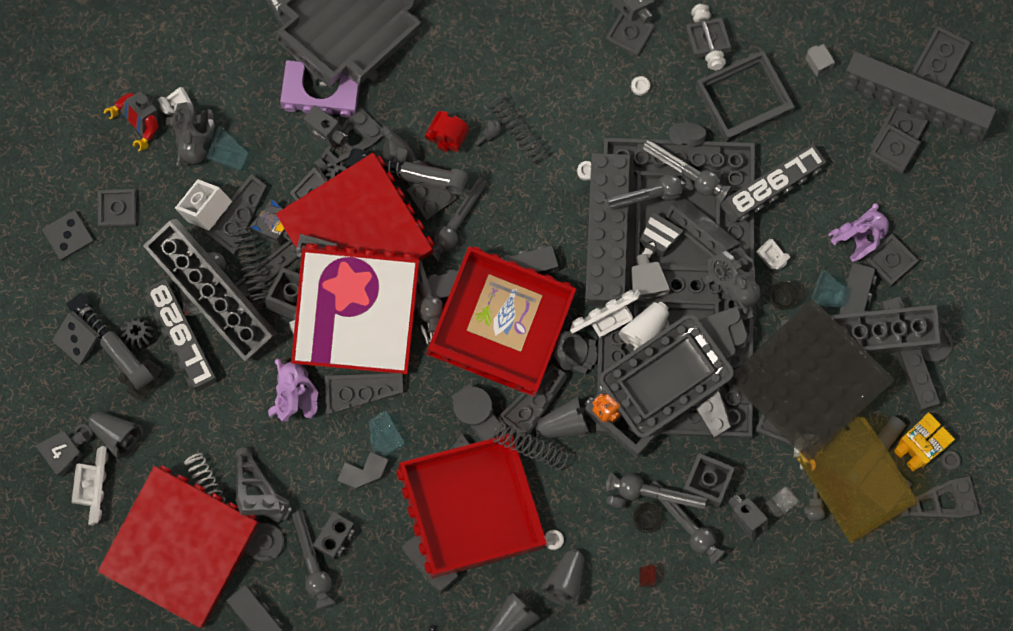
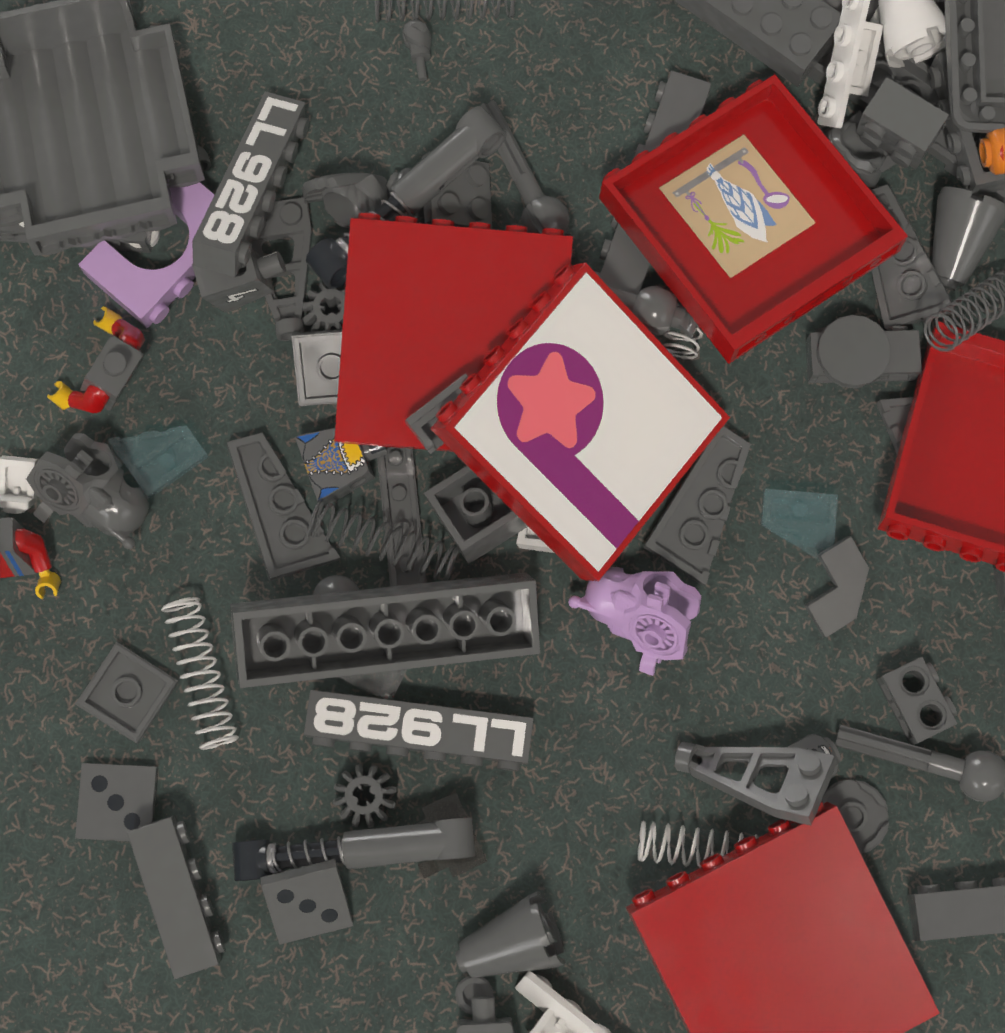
camera: 55 degrees left, 5 degrees up
(43, 284) = (176, 897): none -> dark grey brick
(167, 202) = (189, 602): none -> white piece
(203, 204) = (228, 548): white brick -> none
(250, 105) = (110, 370): none -> torso
(368, 104) = (250, 185): none -> dark grey brick
(447, 132) = (377, 101): red brick -> none
(590, 355) = (900, 124): none -> dark grey brick

